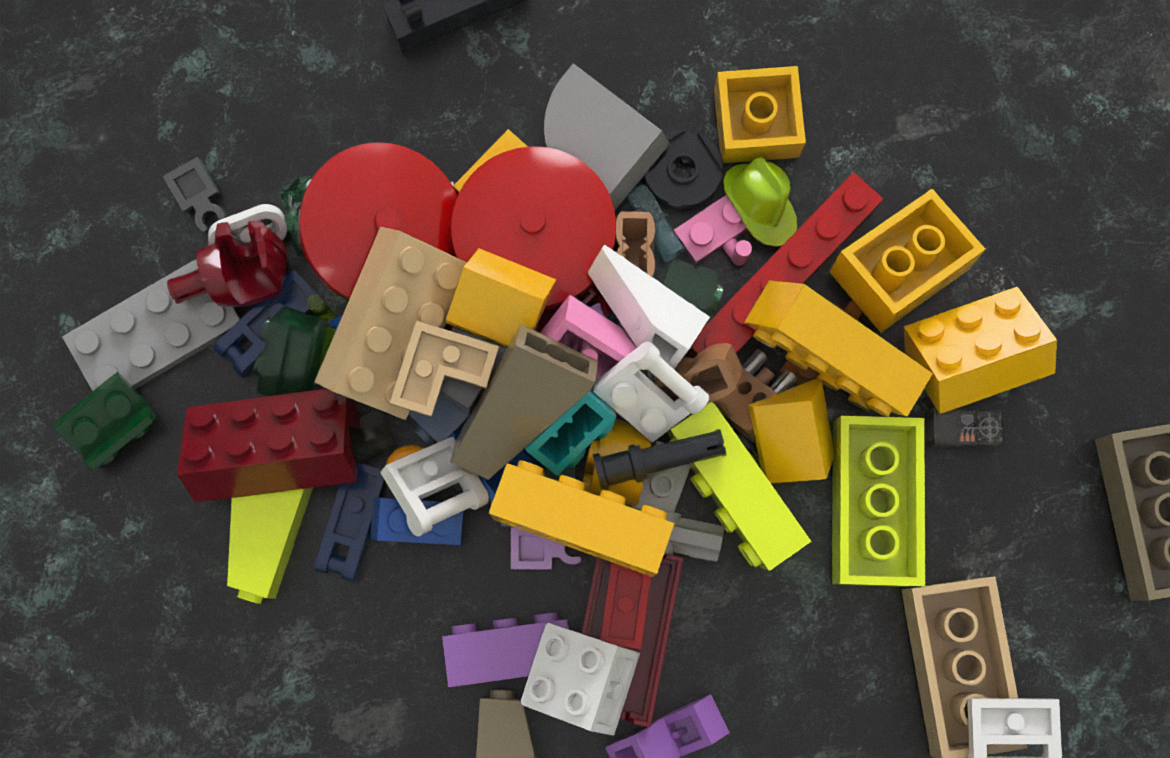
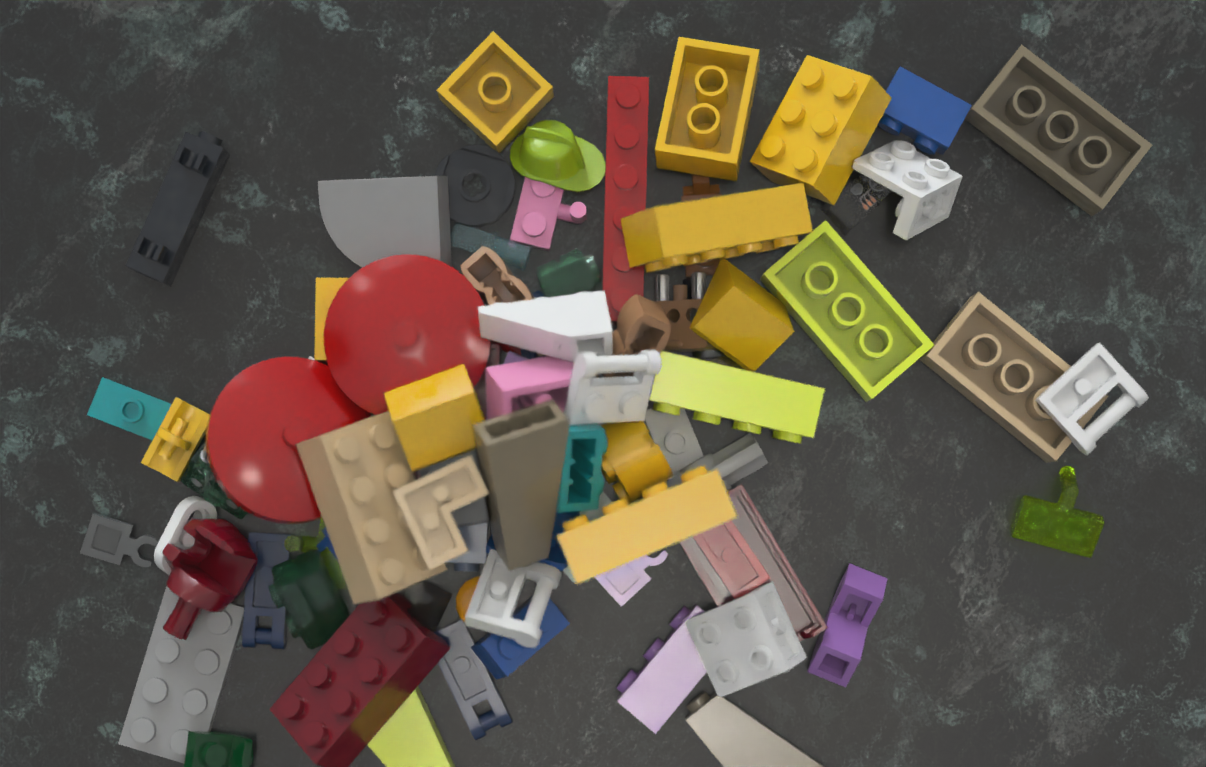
camera: 45 degrees left, 5 degrees up
(295, 114) = (128, 408): none -> teal plate
(301, 156) = (176, 439): none -> yellow hips
(638, 462) = (649, 446): black pin -> none
(1024, 462) = (923, 182): none -> white bracket
(1067, 406) = (922, 112): none -> blue brick

